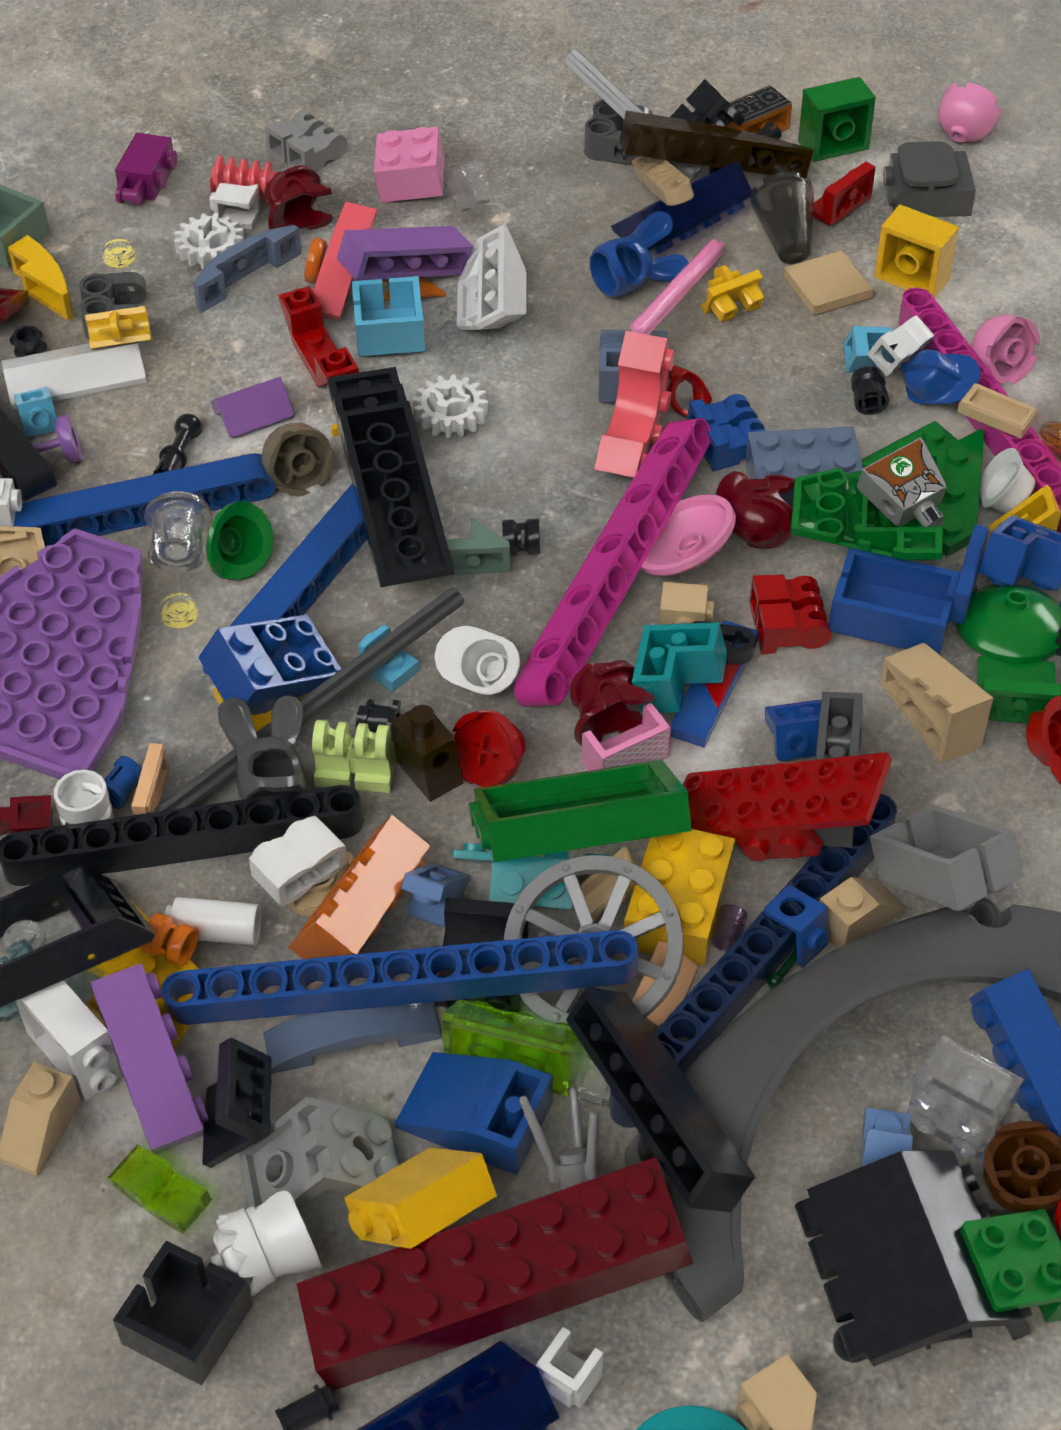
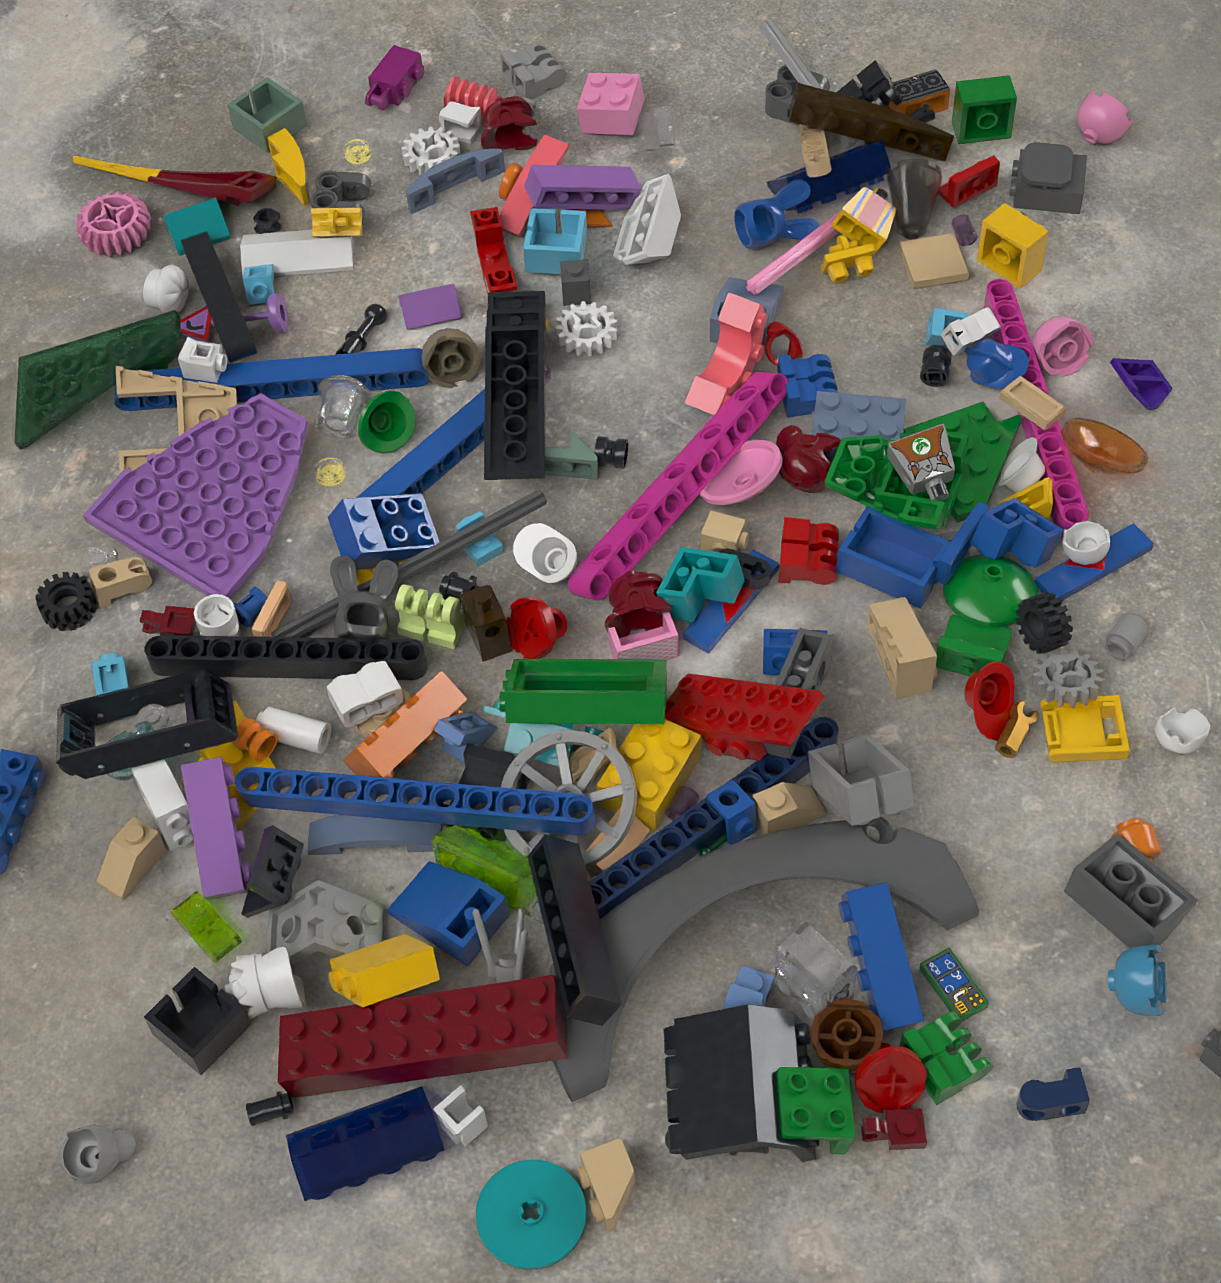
camera: 15 degrees right, 5 degrees up
(423, 357) = (575, 282): none -> dark grey brick
(742, 245) = (866, 218): none -> yellow torso
(852, 246) = (964, 230): none -> clear purple hinge

